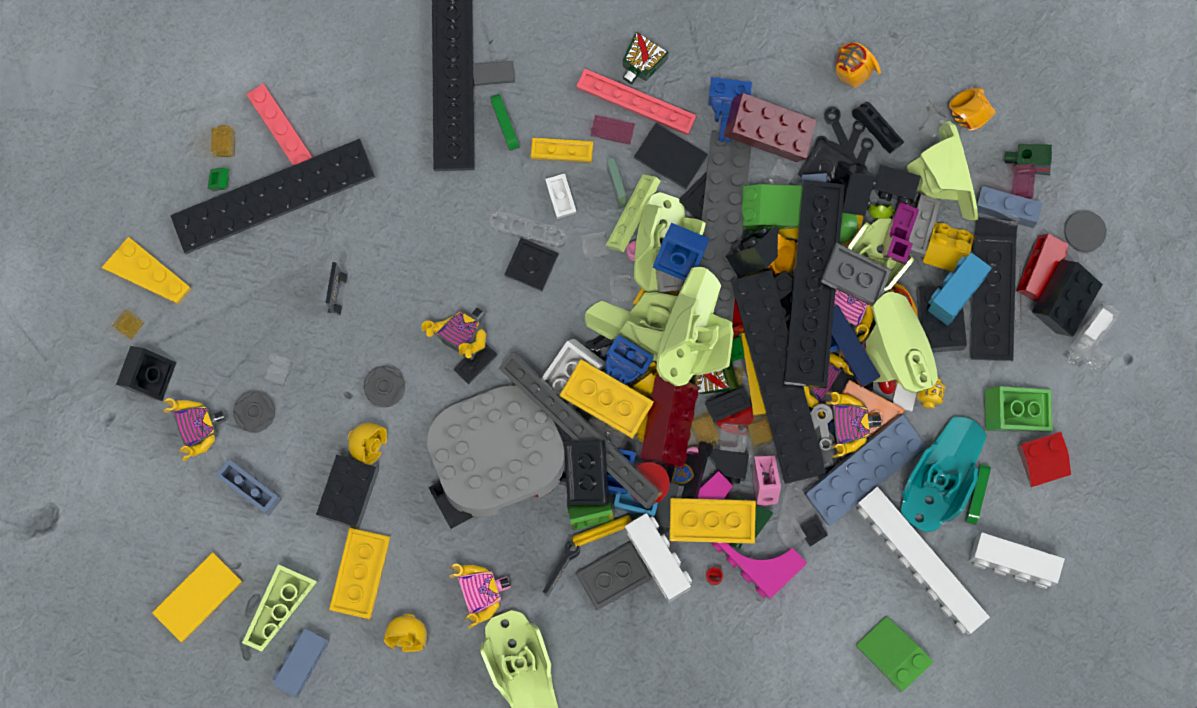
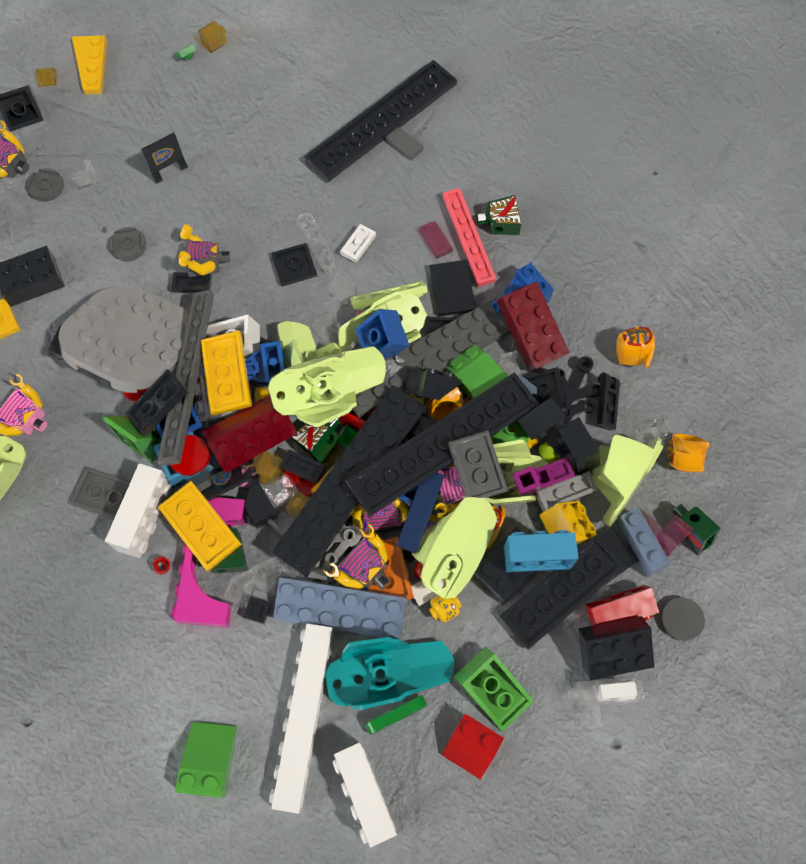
camera: 45 degrees right, 10 degrees down
(272, 196) = (202, 86): black plate -> none
(278, 125) = (249, 69): coral plate -> none
(365, 442) = (73, 260): yellow cylinder -> none
(504, 122) = (376, 172): green beam -> none
(562, 150) = (391, 221): yellow tile -> none
(569, 555) = (75, 450): black flag -> none
(601, 531) = (130, 456): yellow axle -> none
(616, 182) = (397, 264): sand green tile -> none
(766, 489) = (257, 543): bright pink torso -> none

